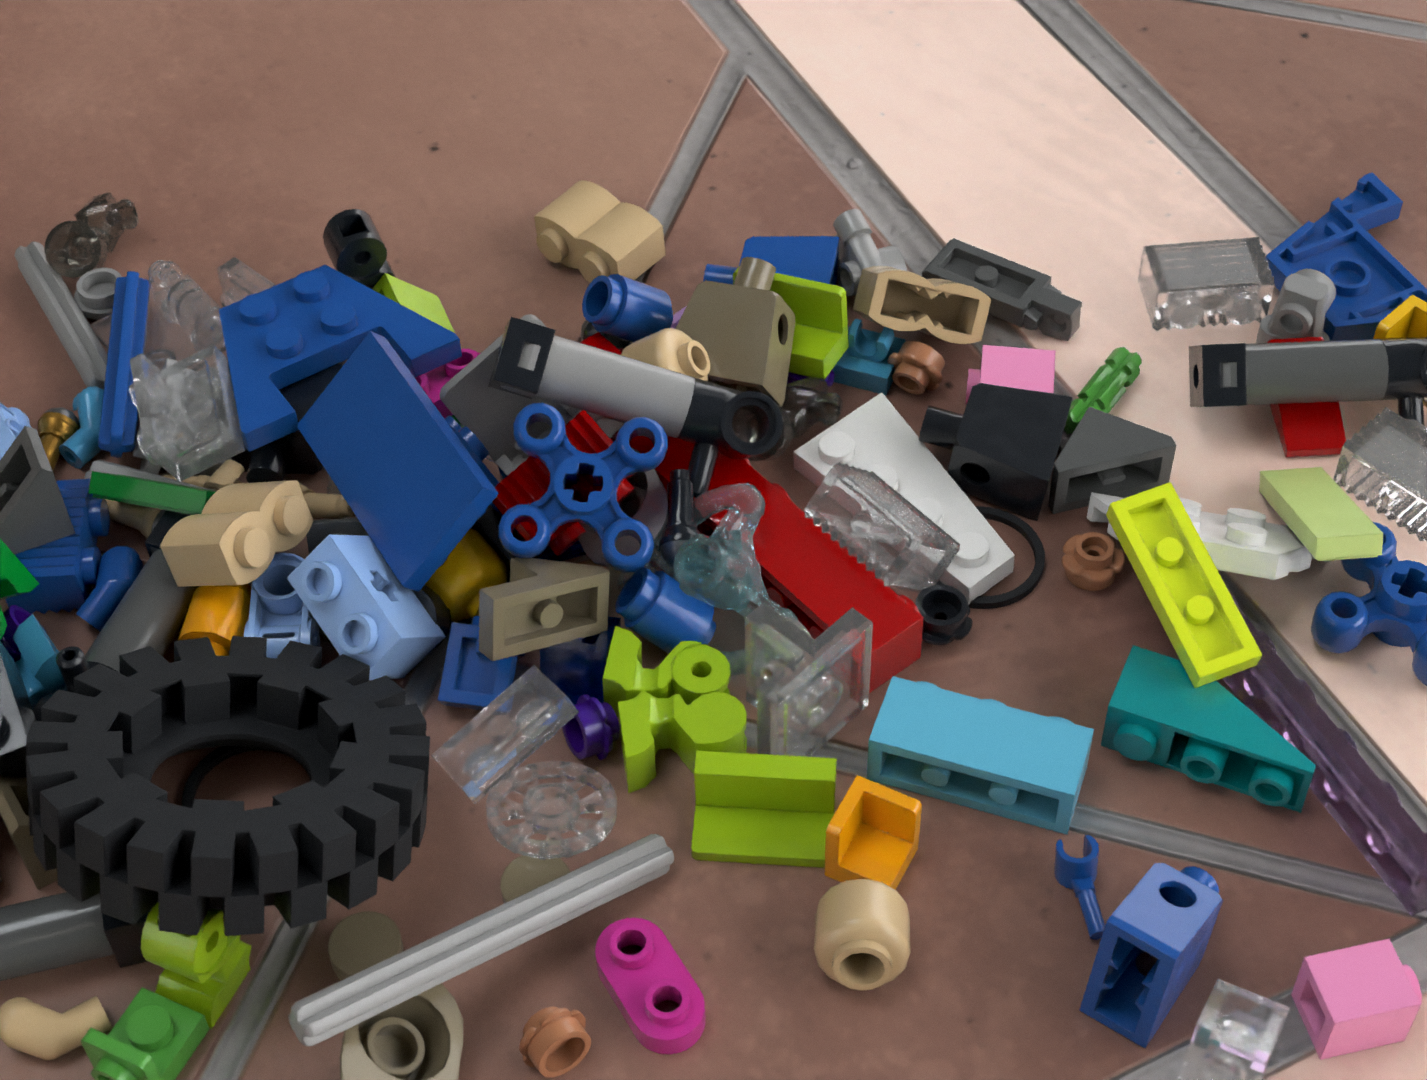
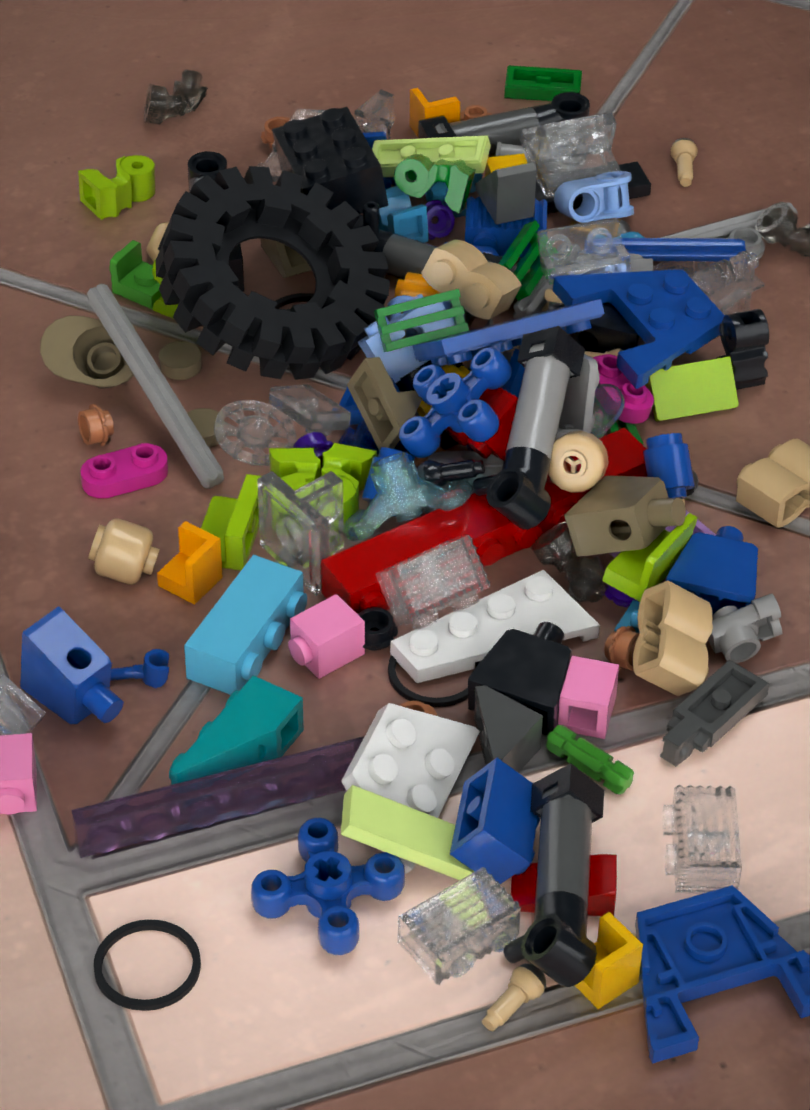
camera: 95 degrees right, 5 degrees down
(373, 560) = (456, 312): none -> green tile
(978, 654) = (327, 636): none -> bright pink brick
(1183, 585) = (329, 707): neon yellow plate -> none
(1265, 441) = (495, 822): none -> blue brick
(1299, 307) = (645, 881): light grey plate -> none

